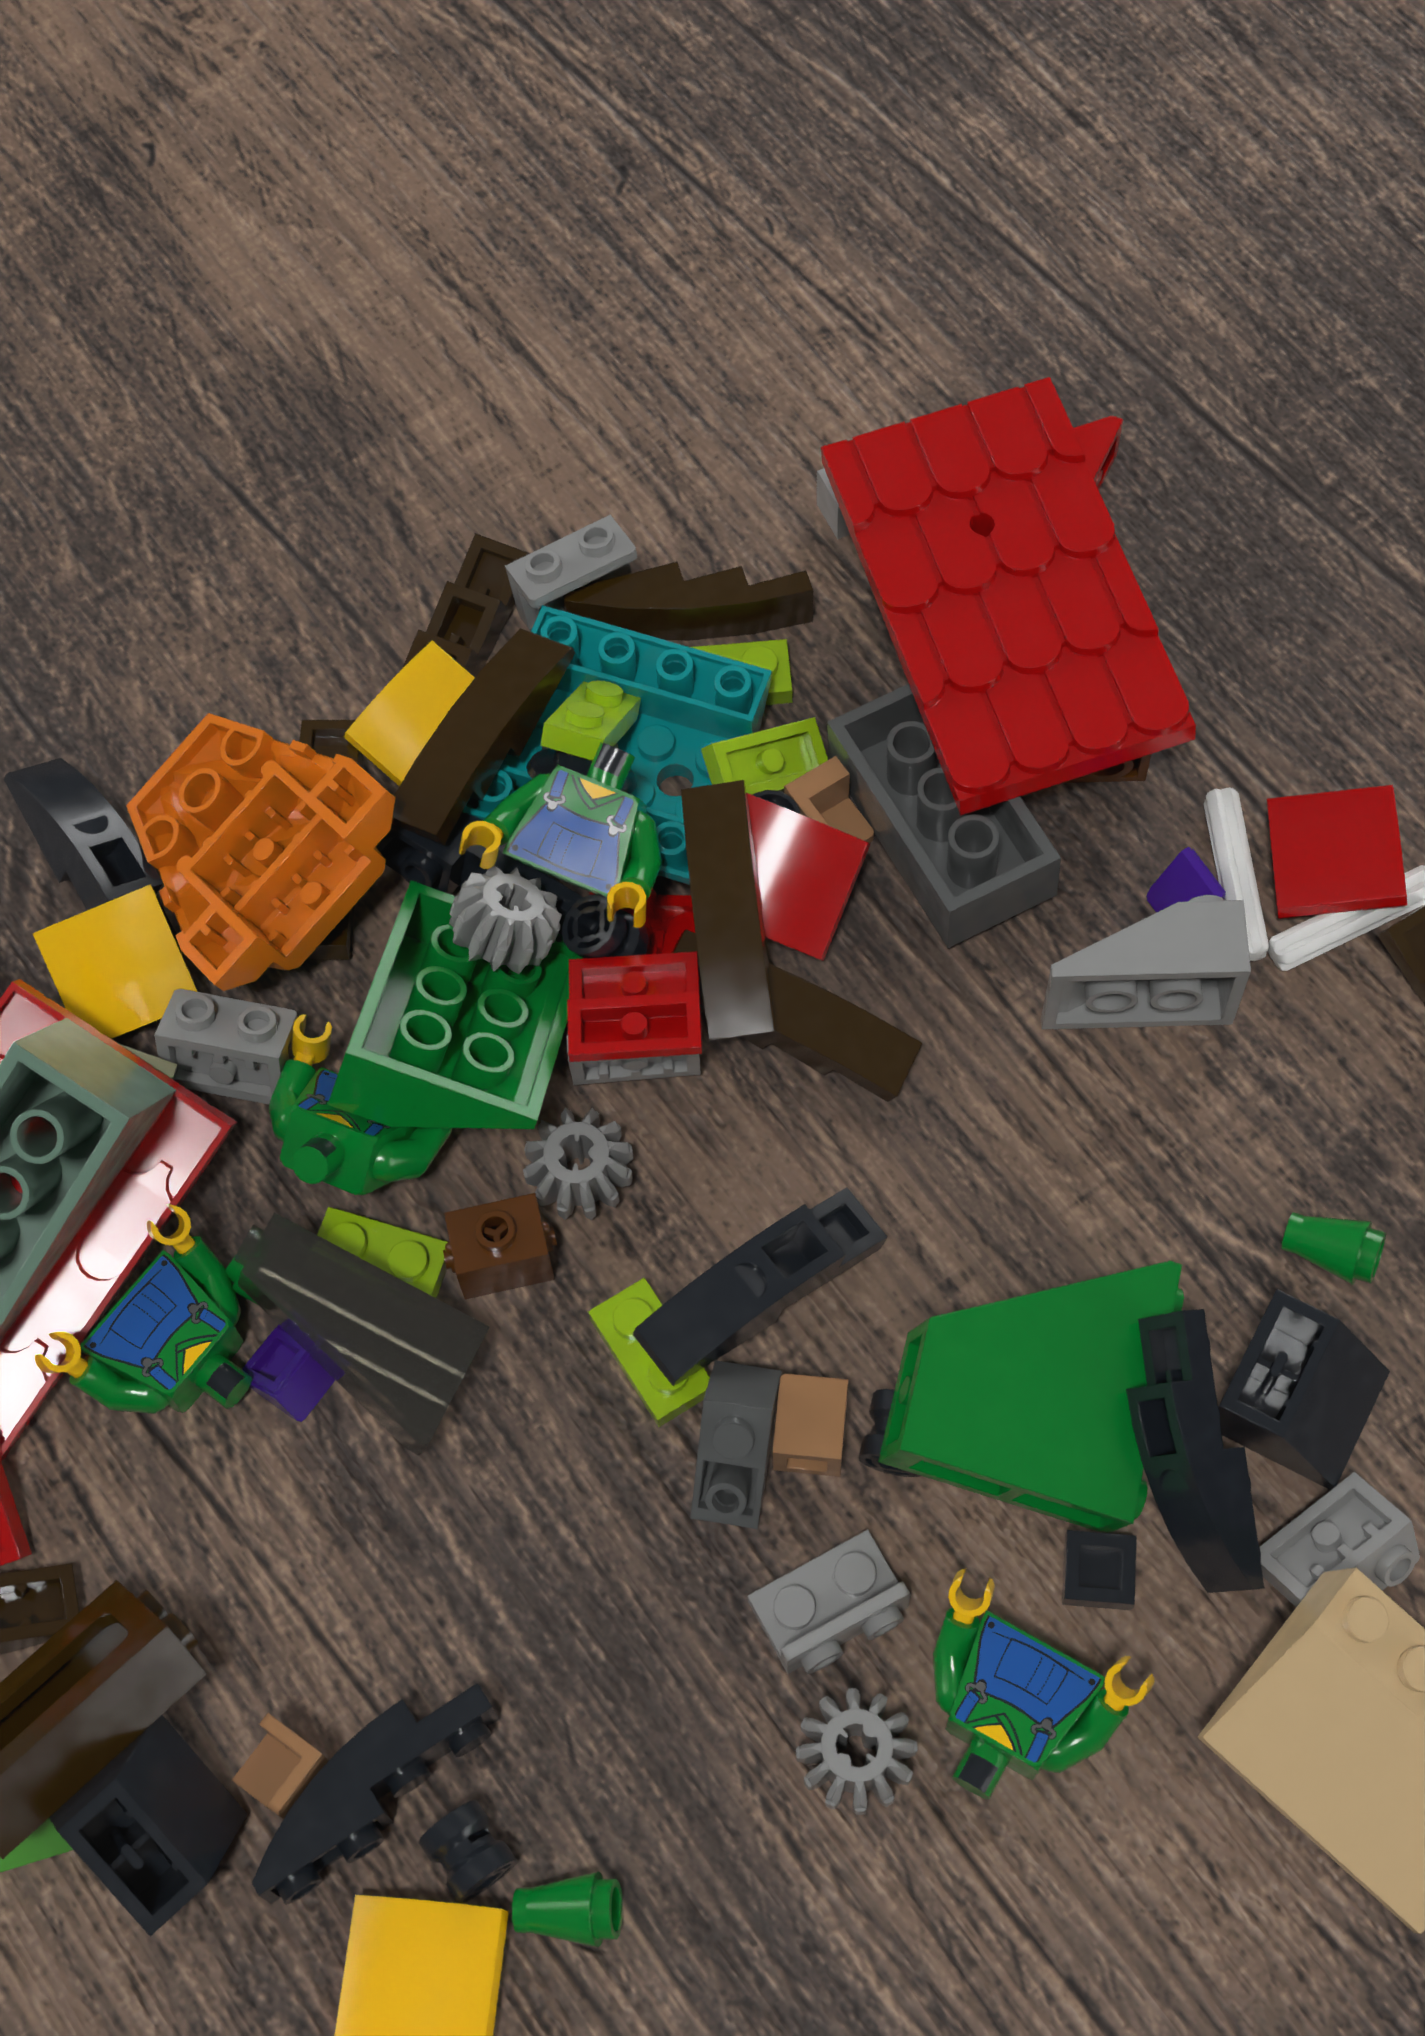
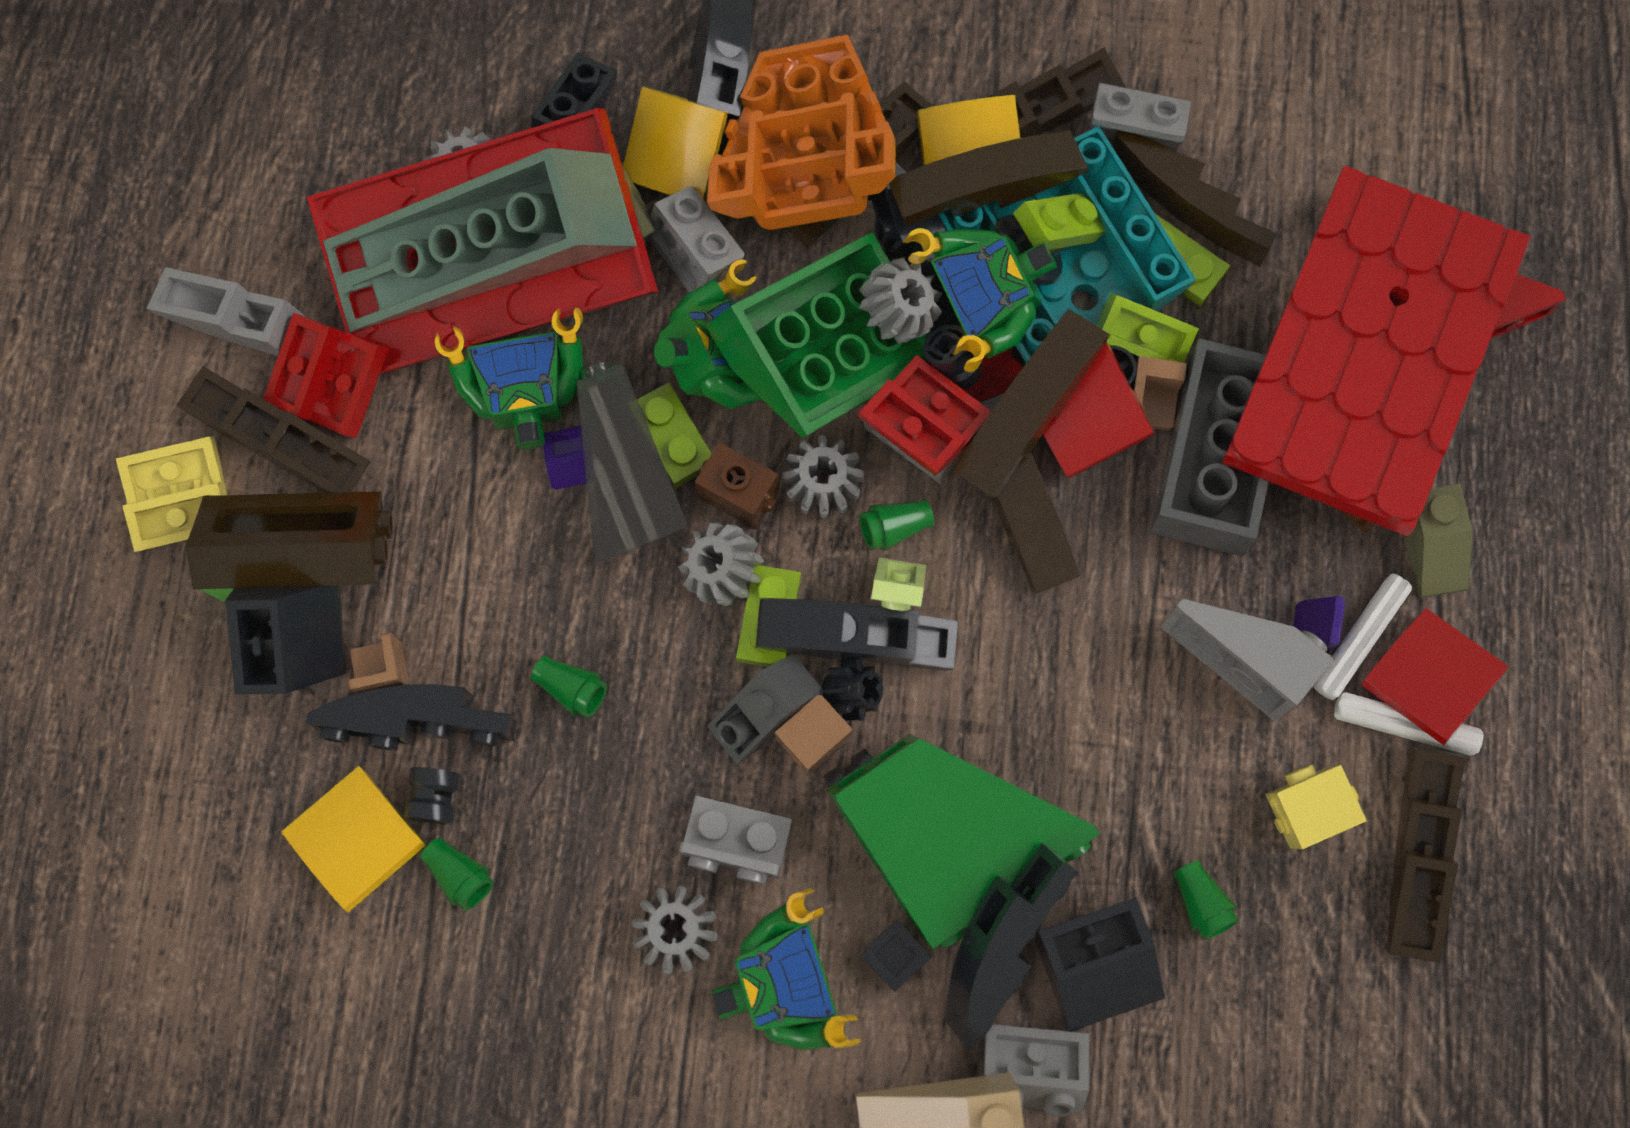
camera: 40 degrees right, 10 degrees up
(509, 1603) = (571, 686): none -> green cone
(533, 1337) = (718, 581): none -> light grey gear
(691, 1150) = (892, 523): none -> green cone
(759, 1197) = (898, 584): none -> yellowish green plate
(807, 1341) = (853, 689): none -> black gear
(1230, 730) = (1441, 544): none -> olive slope
(1348, 1063) = (1315, 805): none -> light yellow head

